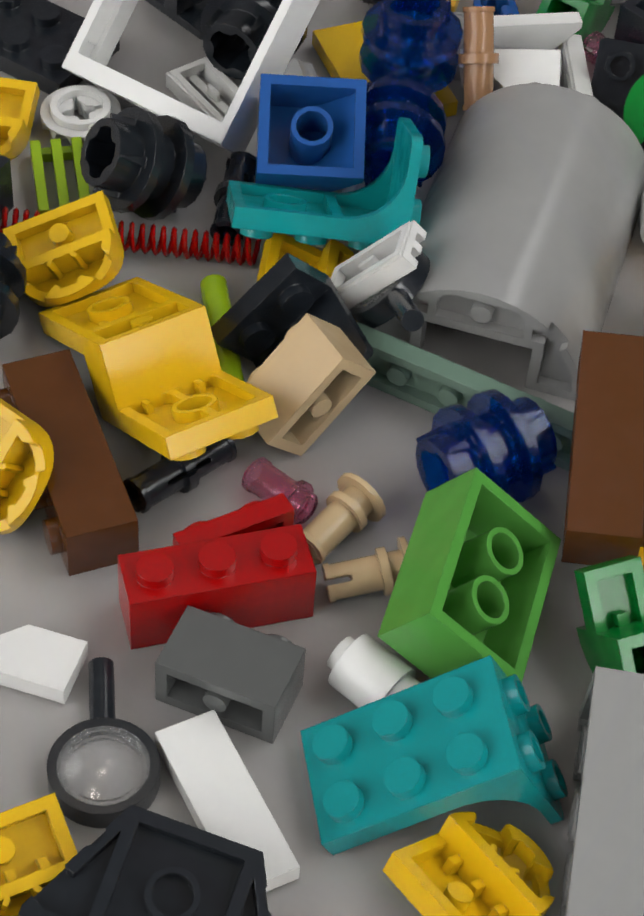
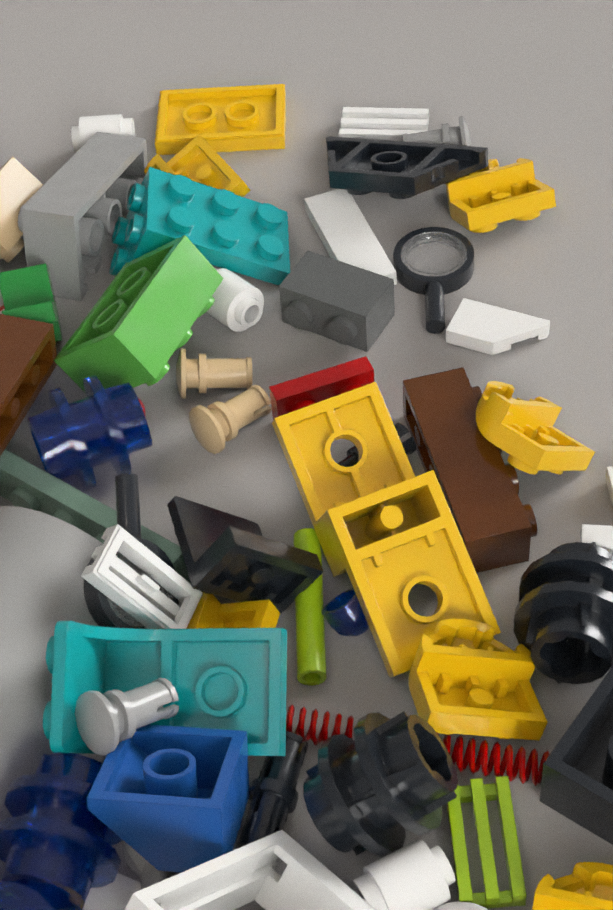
camera: 165 degrees left, 0 degrees up
(245, 576) = (307, 346): red brick -> none
(268, 481) = (263, 437): clear pink pin -> none
(311, 382) = (239, 491): tan brick -> none
(359, 152) = (116, 715): none -> light grey pin

